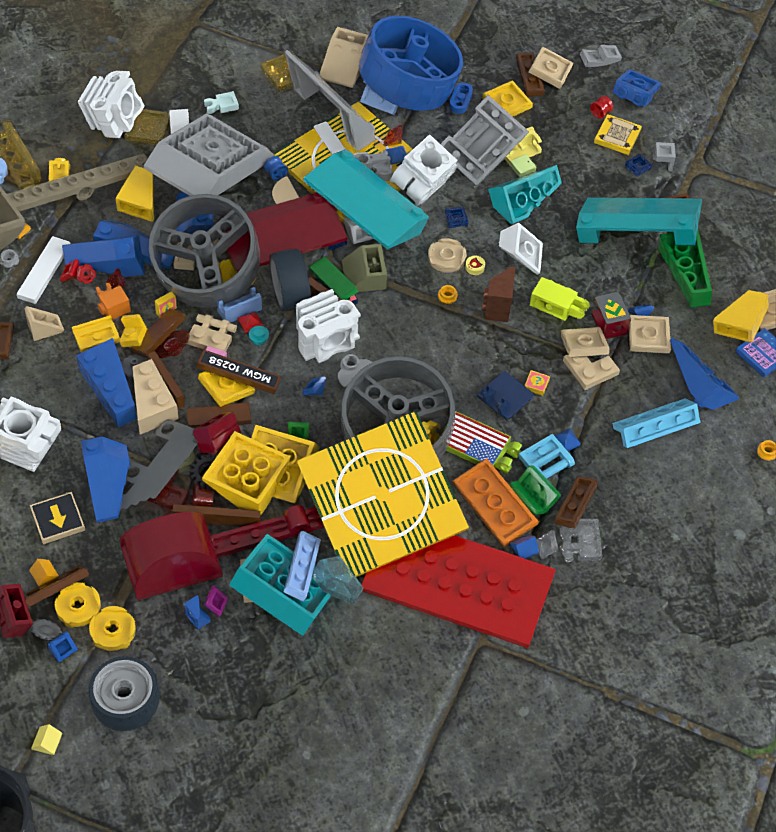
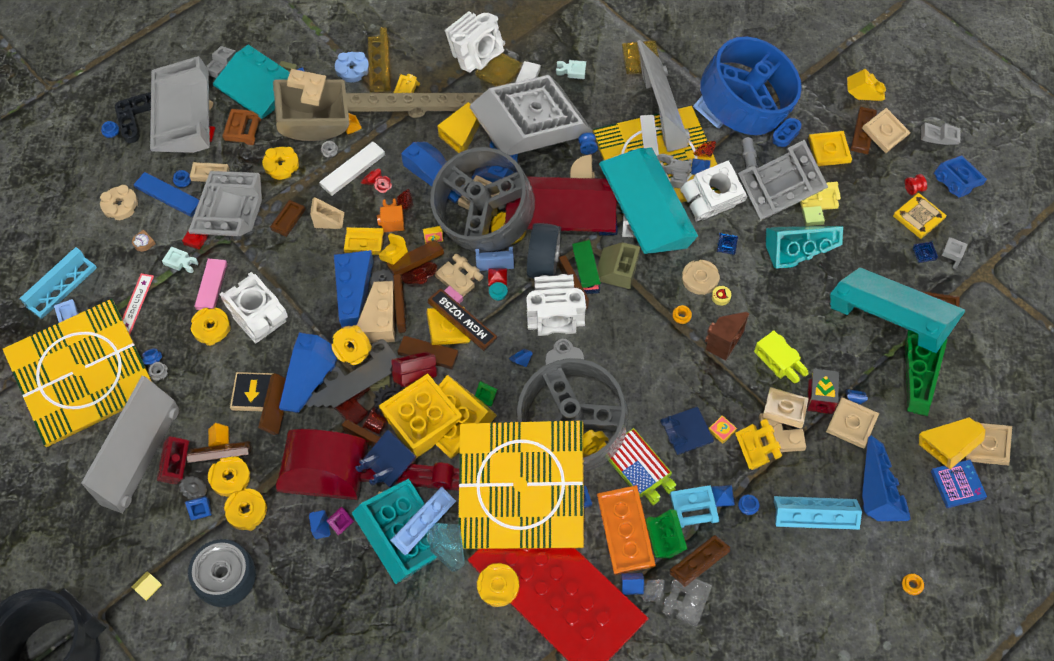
camera: 30 degrees right, 5 degrees up
(90, 529) = (271, 414): none -> reddish brown tile
(108, 255) = (407, 174): blue wedge -> none
(144, 422) = (358, 338): none -> yellow plate
(238, 523) = (387, 459): none -> dark blue plate
(343, 57) = (694, 60): tan slope -> none
(402, 596) = (498, 585): none -> yellow tile
(435, 128) = (749, 153): none -> light grey pin
(513, 33) = (865, 86): none -> yellow slope
(522, 246) = (772, 294): white slope -> none
(572, 386) = (752, 445): none -> yellow plate
(594, 438) = (748, 504): none -> blue plate

